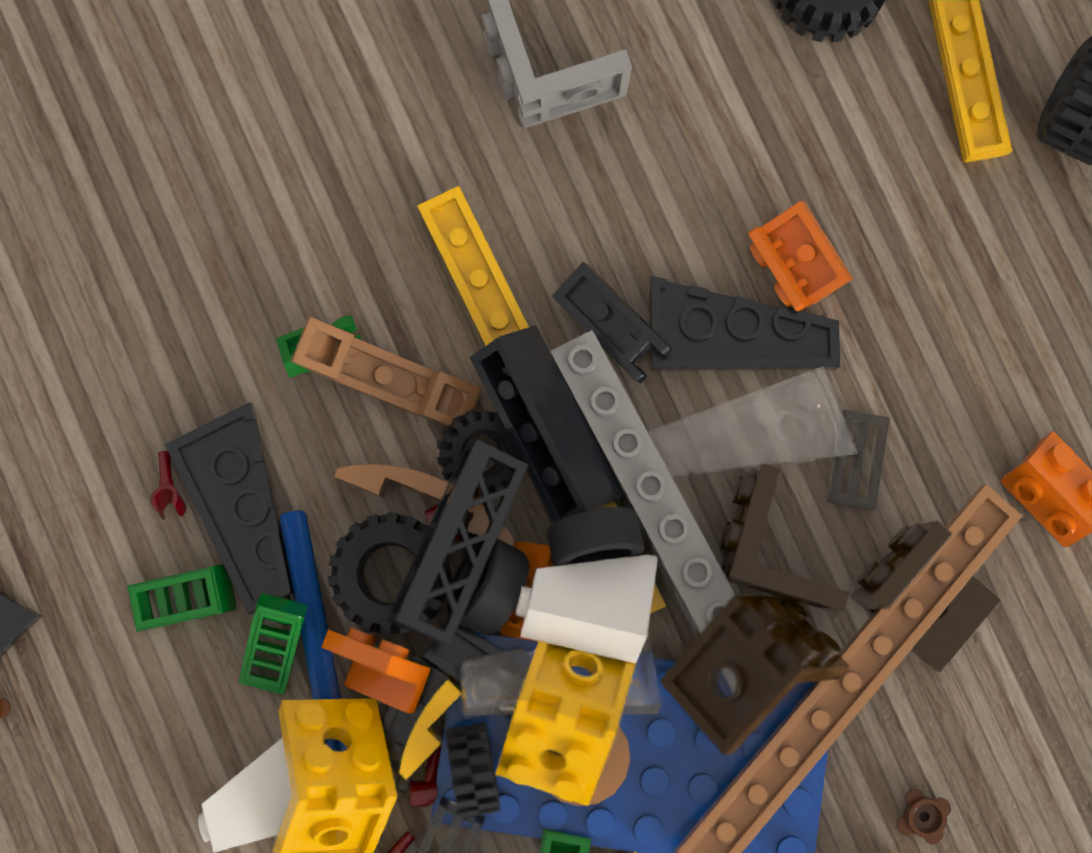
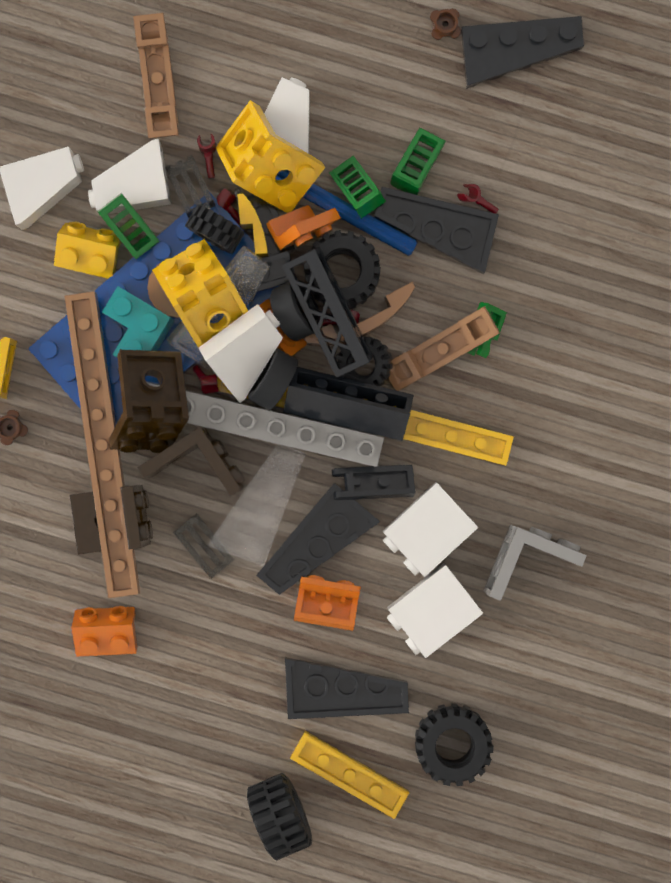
camera: 140 degrees right, 5 degrees up
(612, 211) = (428, 530): none -> white brick
(659, 760) = (145, 323): none -> teal brick
(664, 617) = (208, 383): none -> dark red hand
(701, 128) = (433, 611): none -> white brick
(890, 161) = (337, 692): none -> black wing

